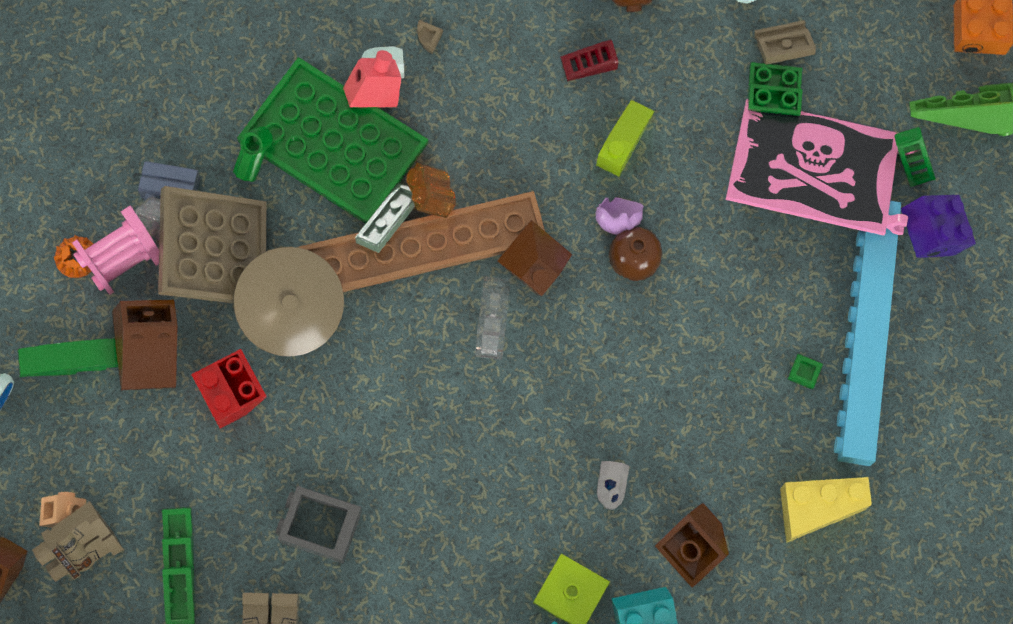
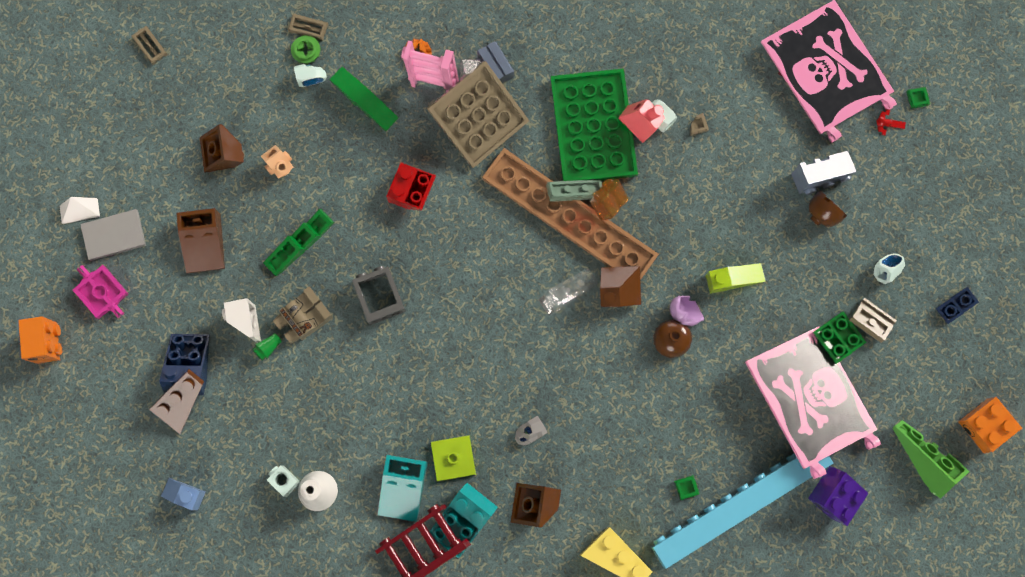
camera: 55 degrees right, 5 degrees up
(76, 543) = (266, 182): dark tan hips -> none
(146, 343) = (398, 126): reddish brown slope -> none
(251, 154) = (549, 89): green piece -> none
(288, 301) = (483, 177): dark tan dish -> none
(602, 66) = (758, 227): dark red slope -> none
(908, 142) = (876, 440): green slope -> none

